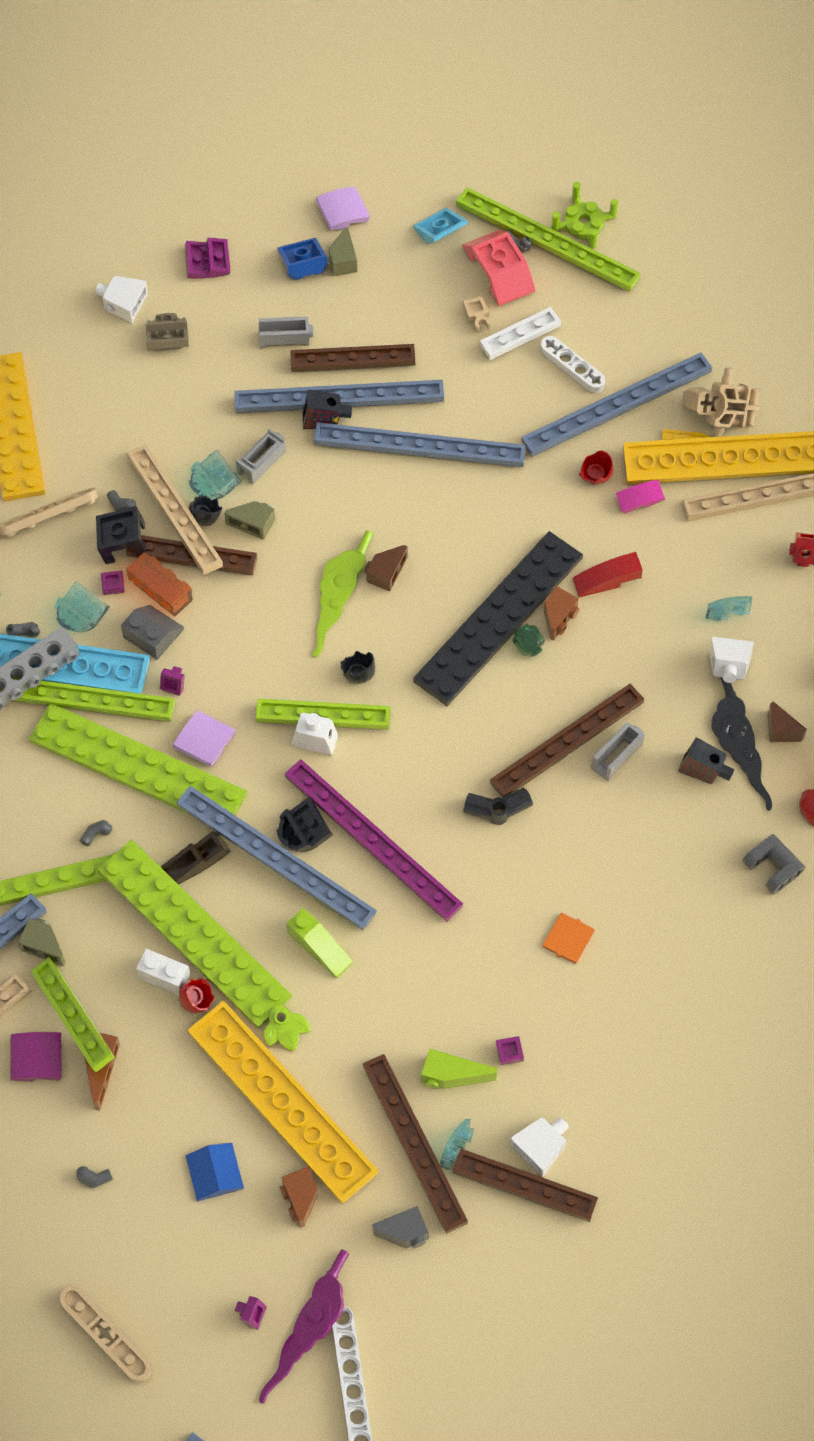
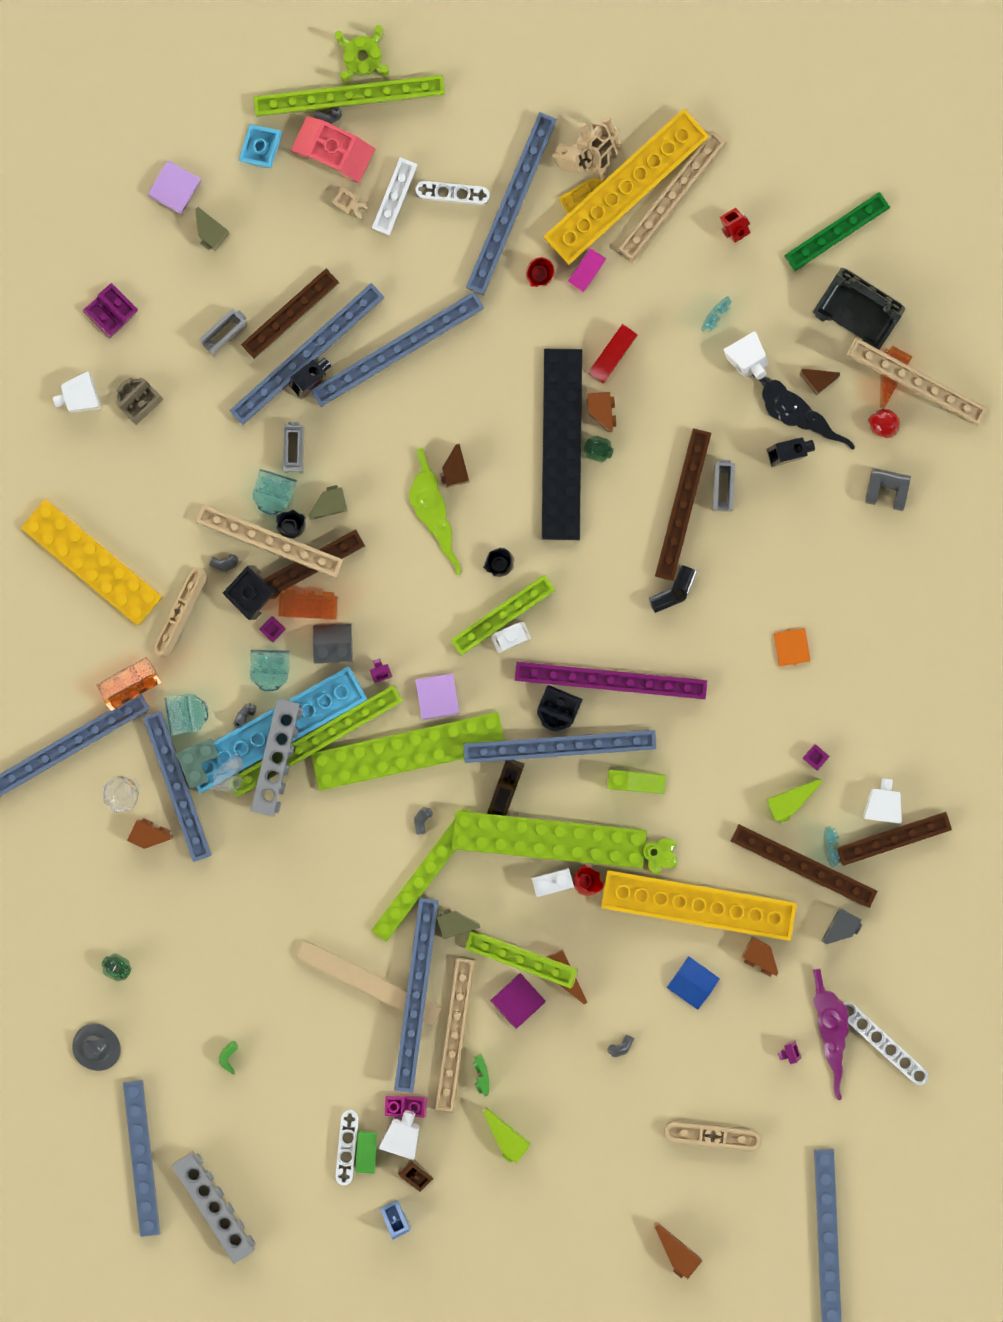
camera: 35 degrees left, 25 degrees up
(303, 258) = (182, 256): blue slope -> none

